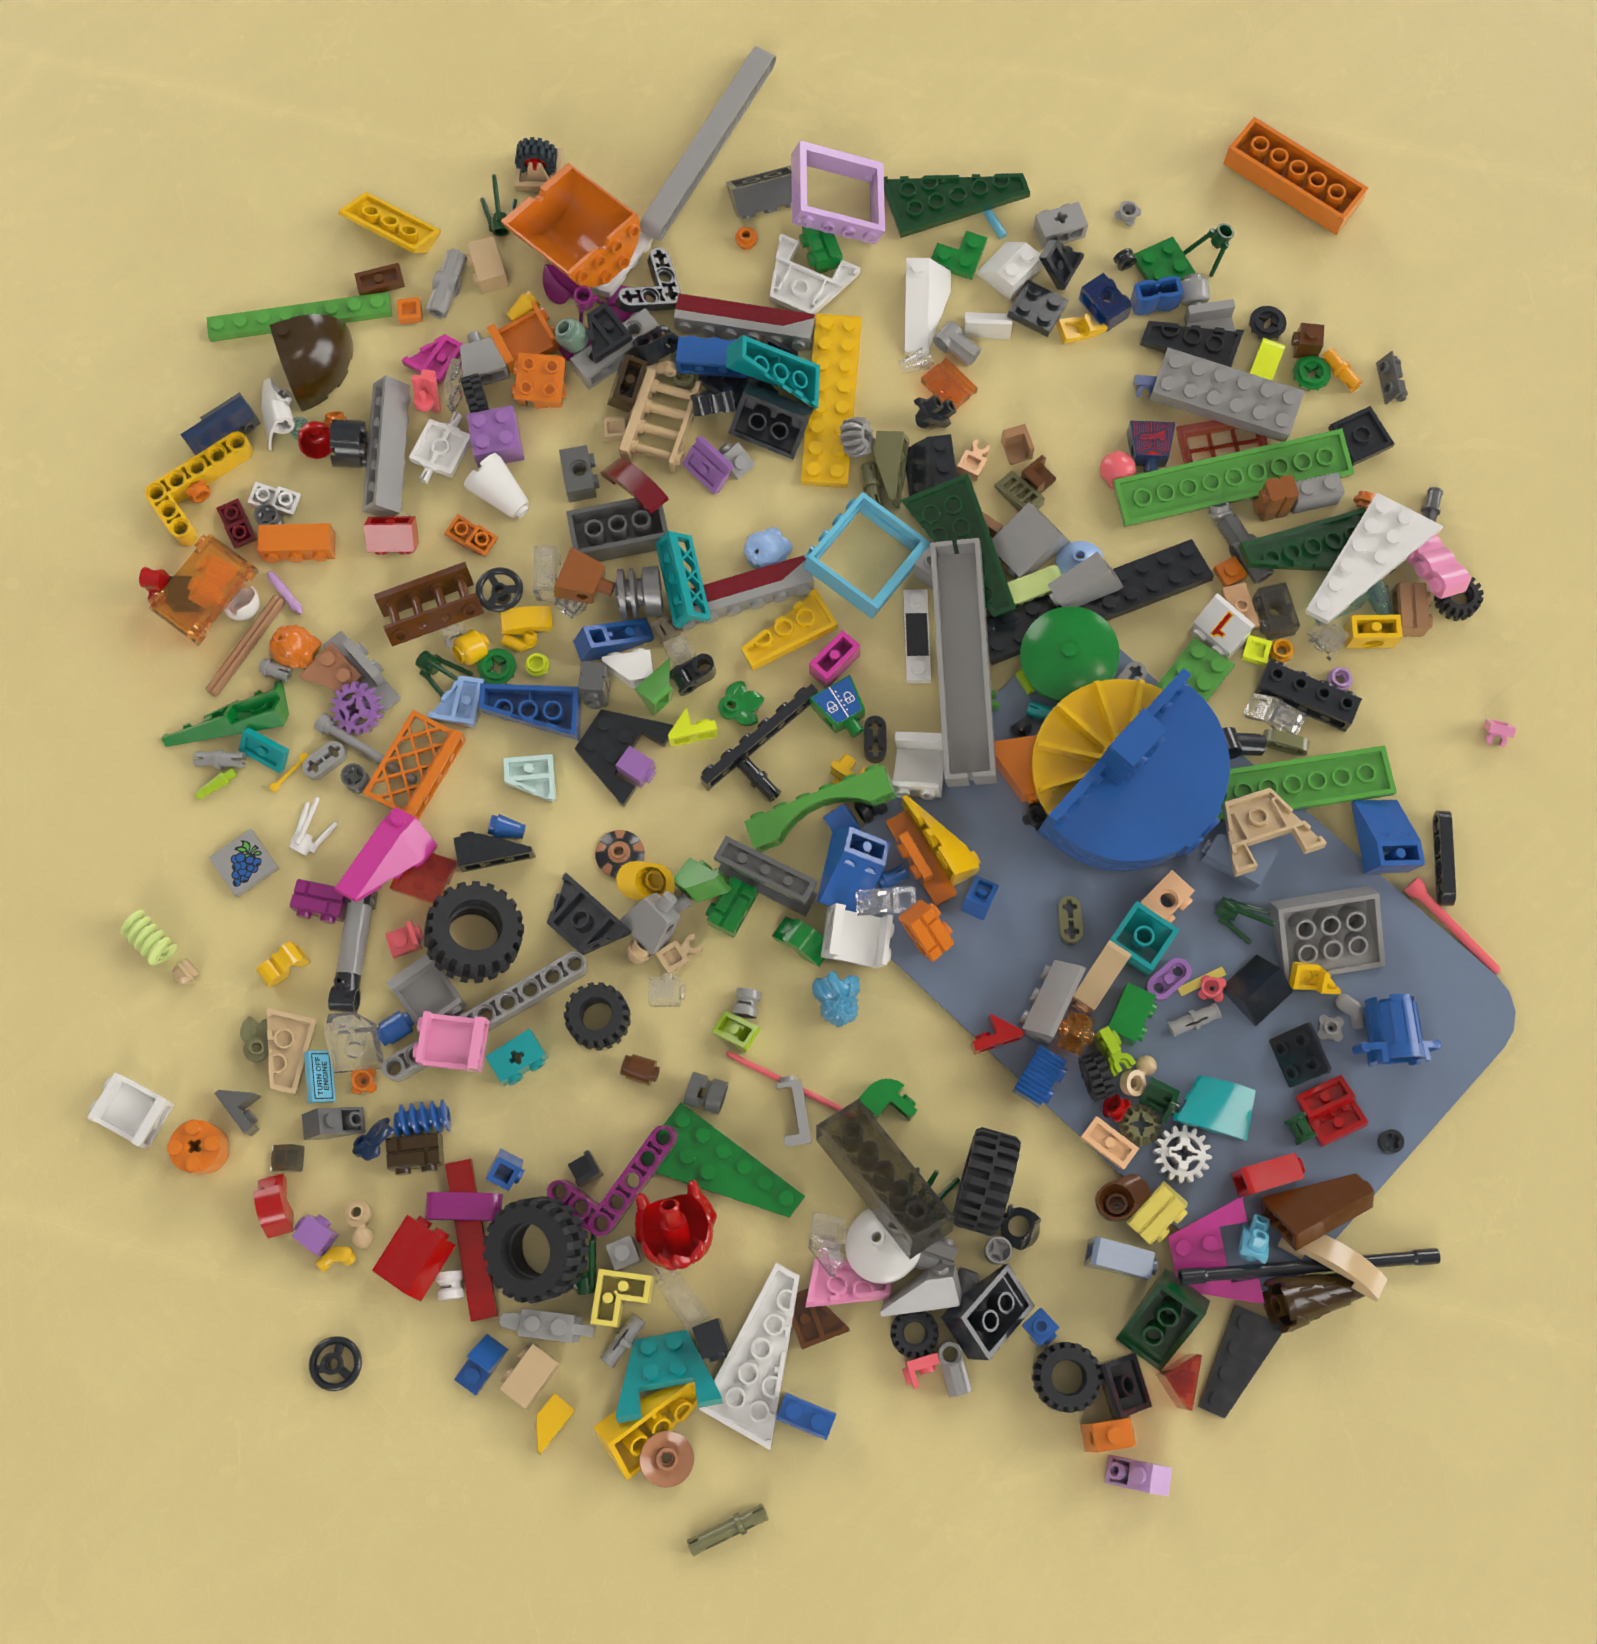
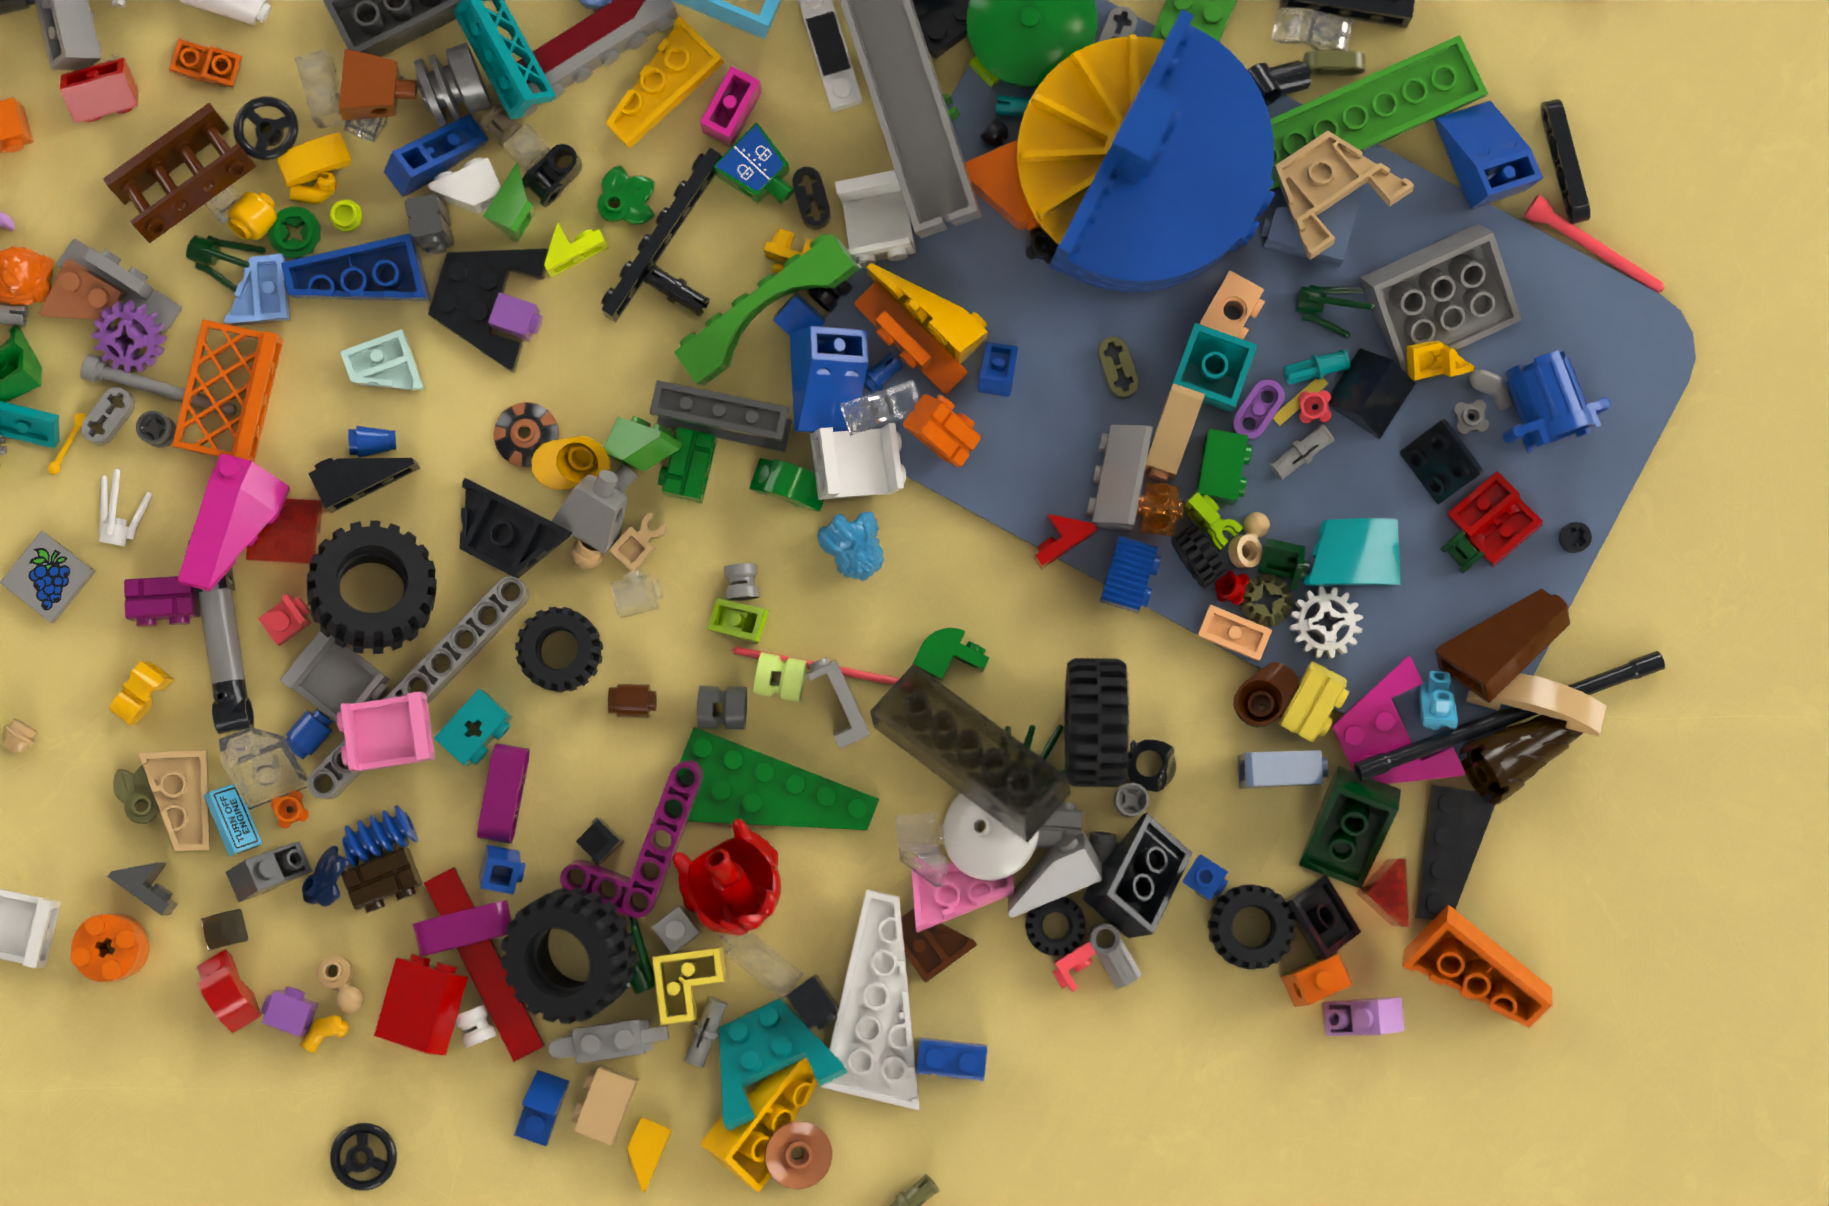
camera: 15 degrees left, 10 degrees up
(524, 1113) = (503, 793): none -> magenta beam
(764, 1085) = (791, 679): none -> yellowish green wheel
(1220, 959) = (1316, 367): none -> teal axle
(1238, 1460) = (1471, 962): none -> orange wedge
(1268, 1175) = (1436, 619): slope -> none

